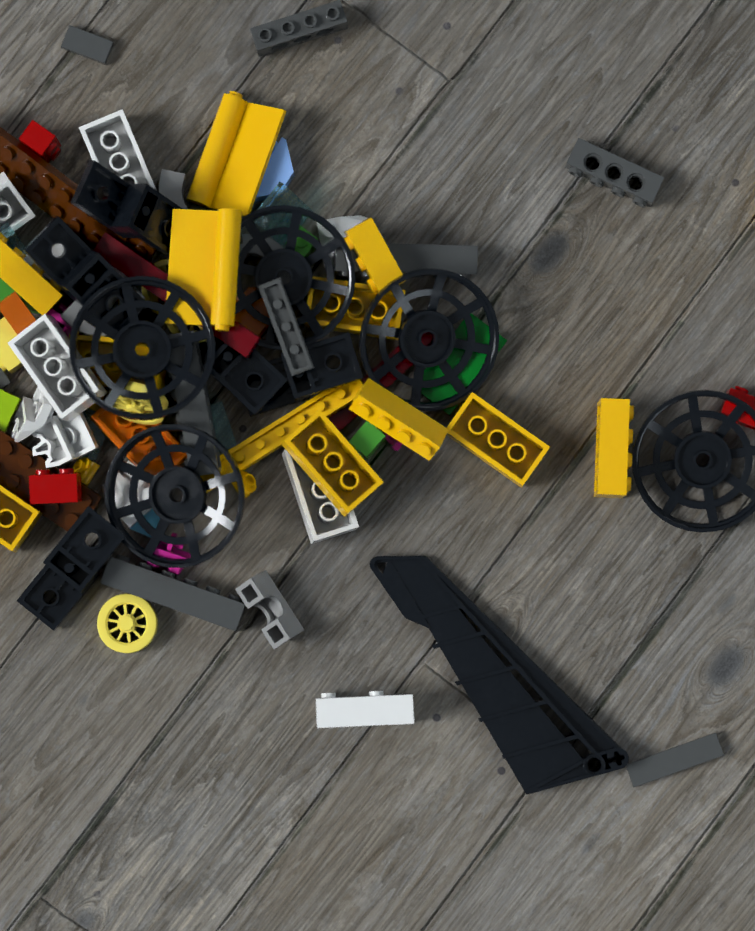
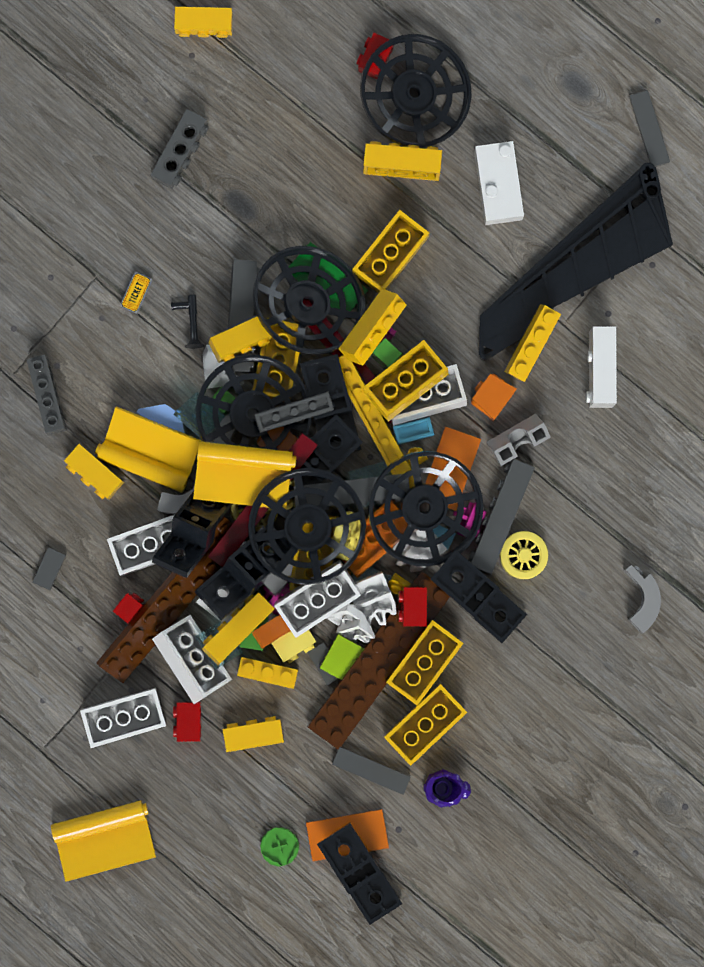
camera: 90 degrees left, 0 degrees up
(63, 781) = (651, 599): none -> light grey arch
(206, 90) = (93, 472): none -> yellow brick
(254, 538) = (461, 447): none -> orange tile
(276, 480) = (413, 430): none -> medium azure tile
(324, 575) = (492, 396): none -> orange torso
(391, 621) = (532, 342): none -> yellow brick
(412, 200) = (191, 305): none -> black piece
(432, 130) = (136, 293): none -> tile
(593, 571) = (499, 183): none -> white brick

